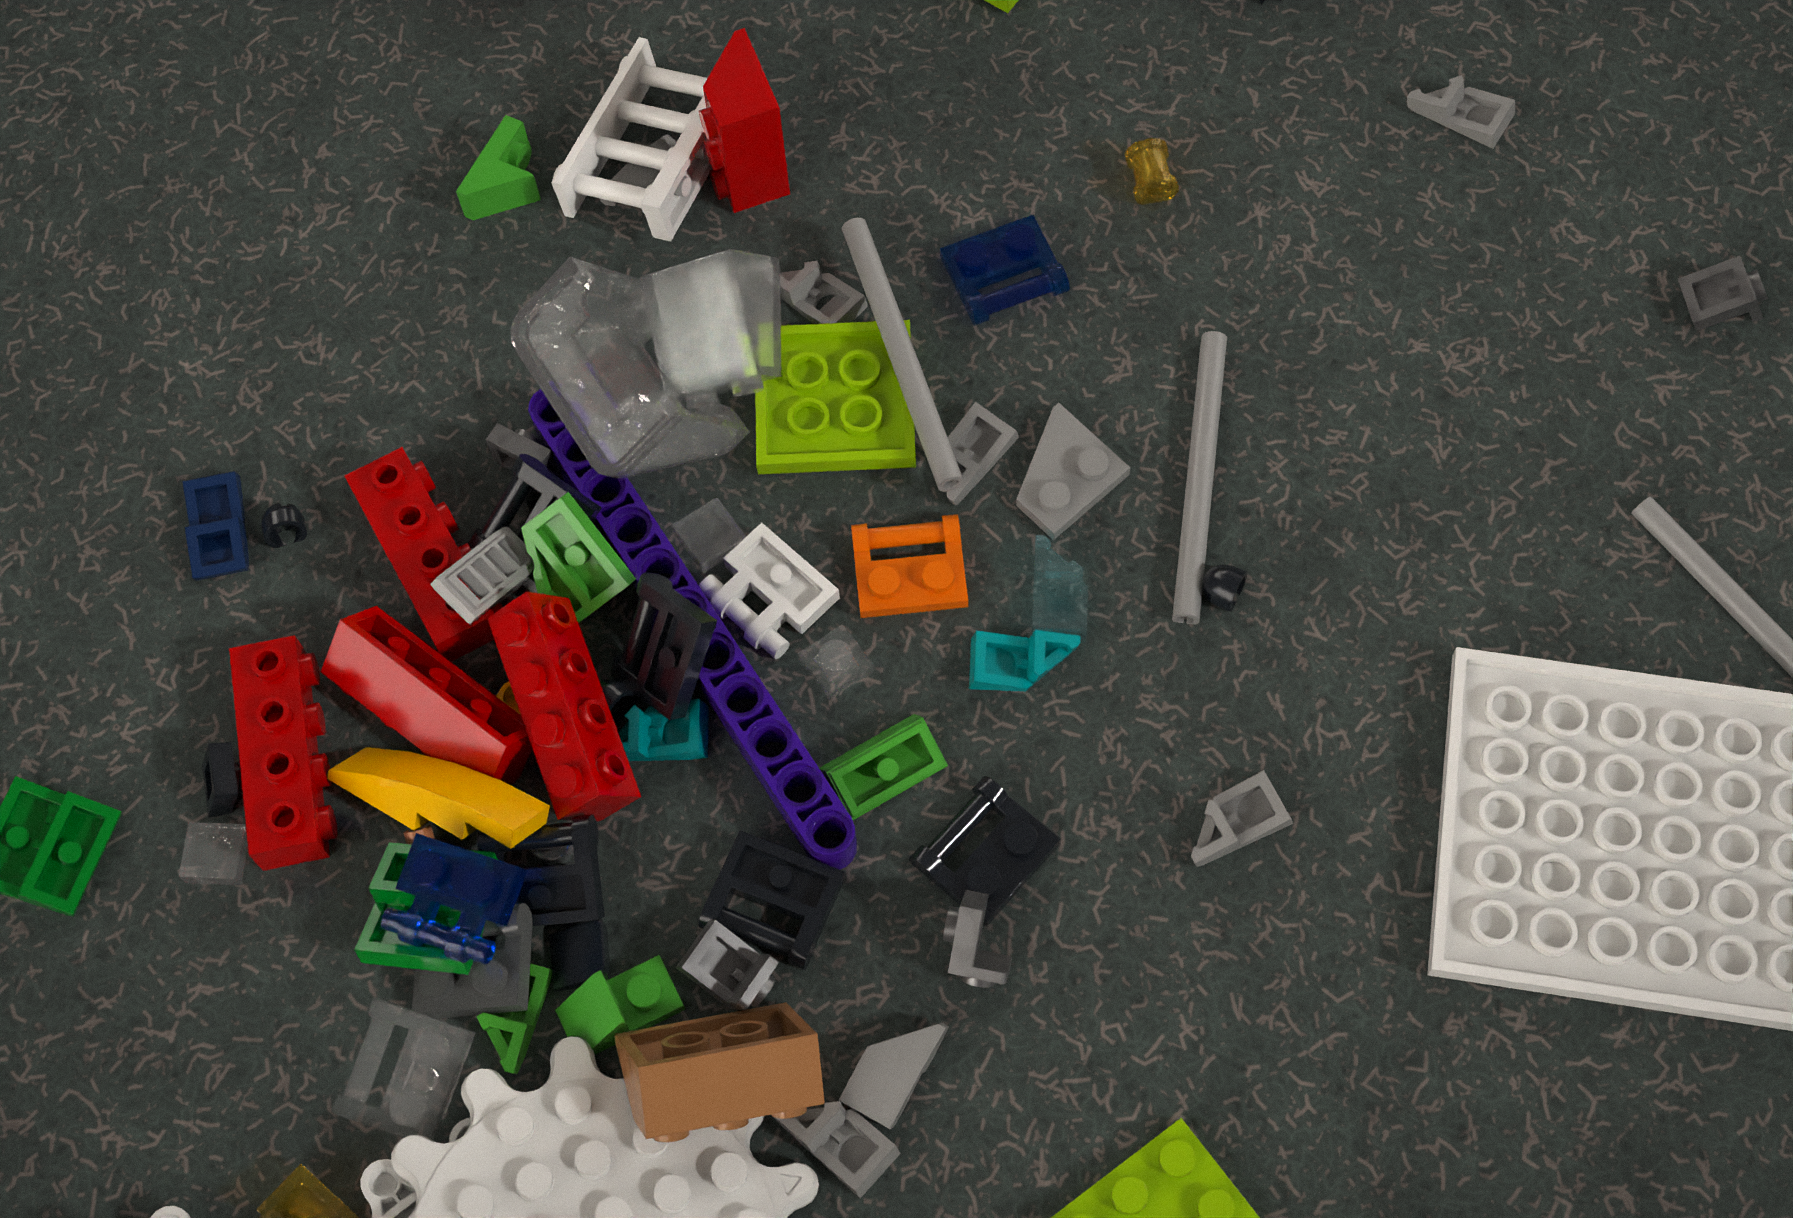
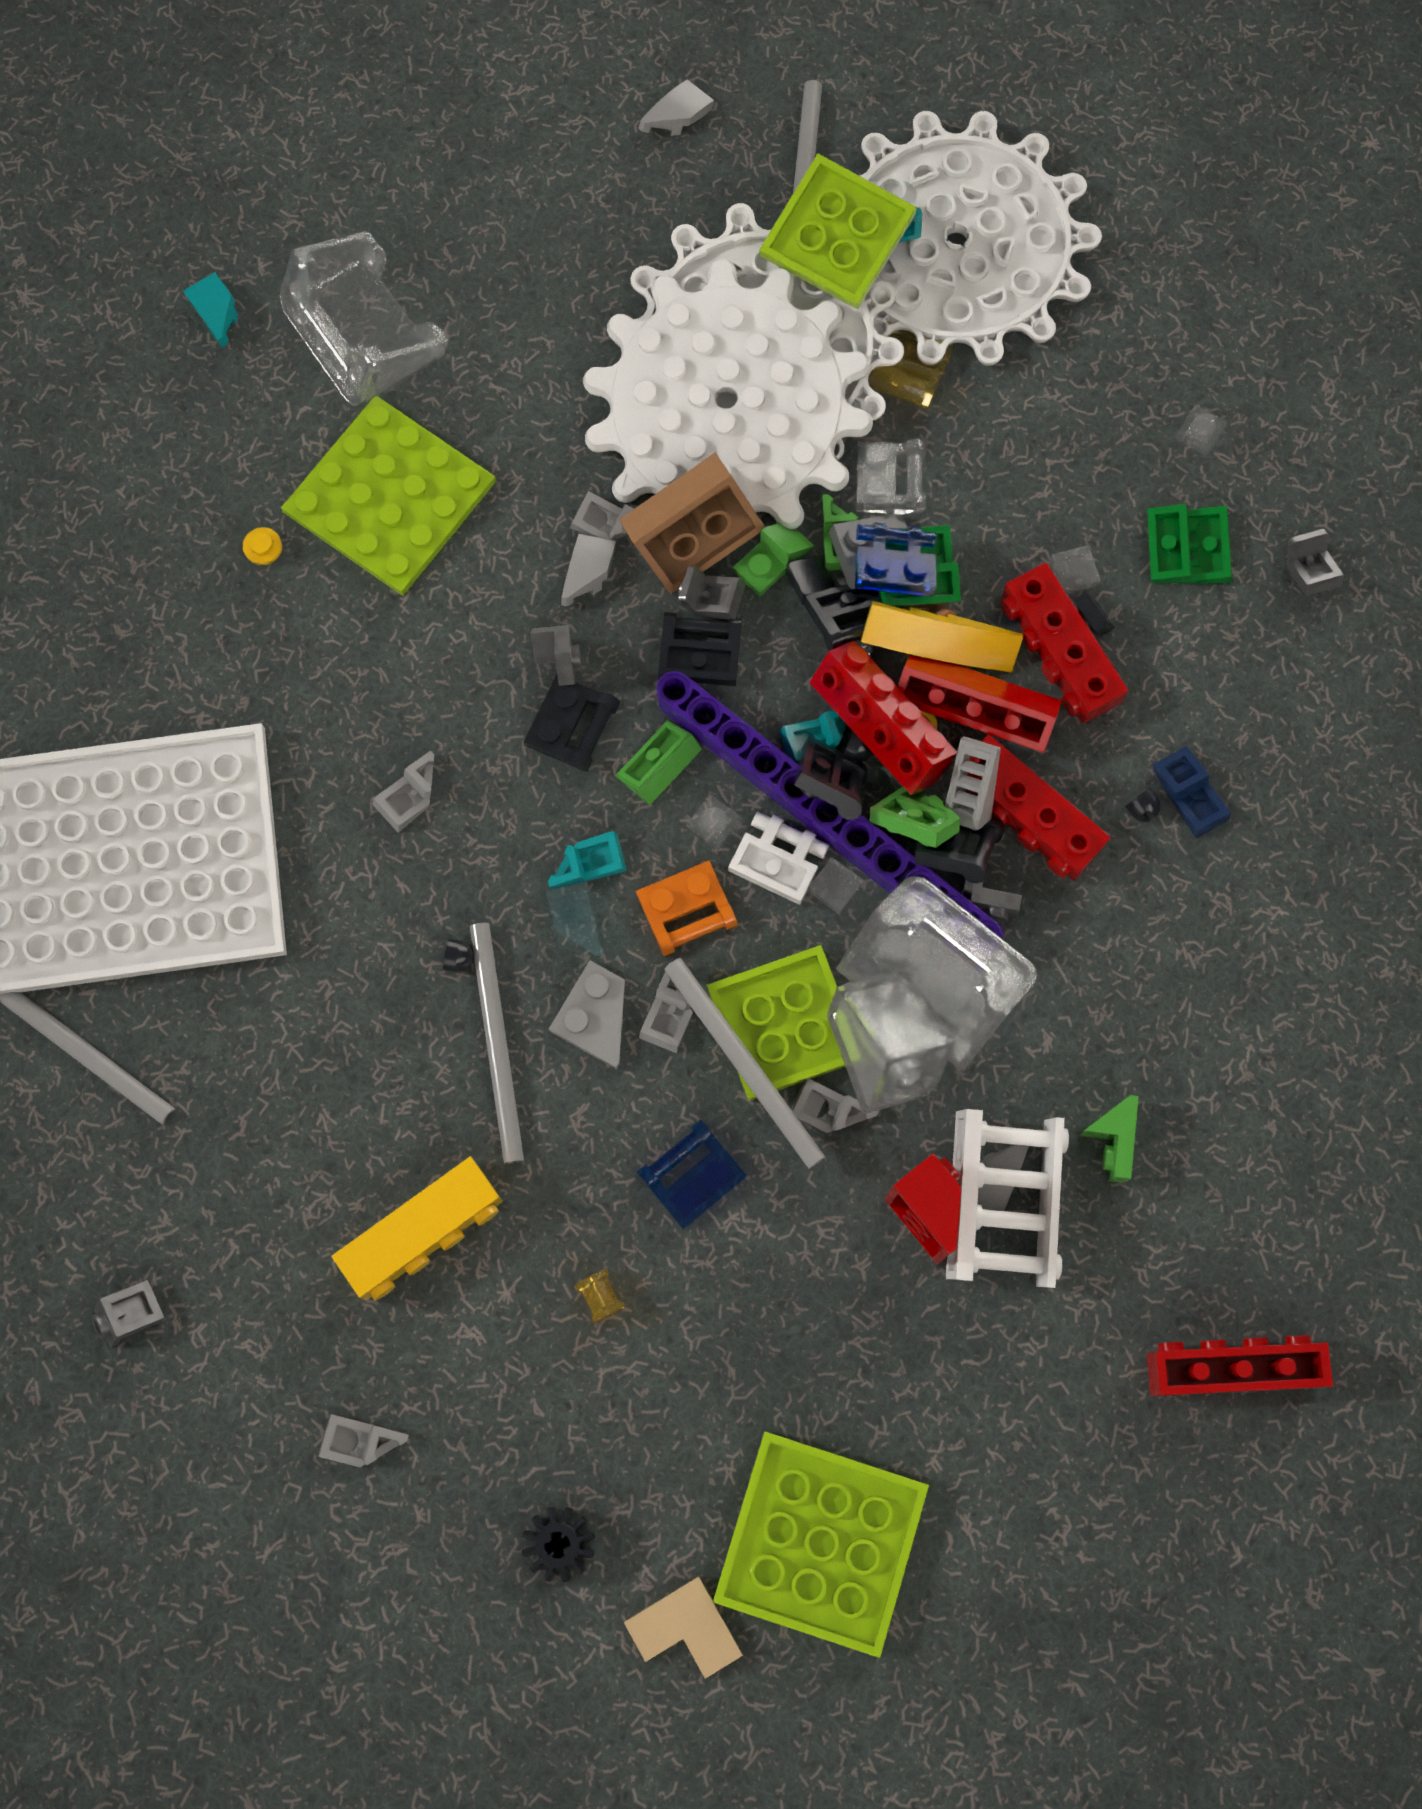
camera: 160 degrees right, 10 degrees up
(1349, 283) = (418, 1229): none -> yellow brick

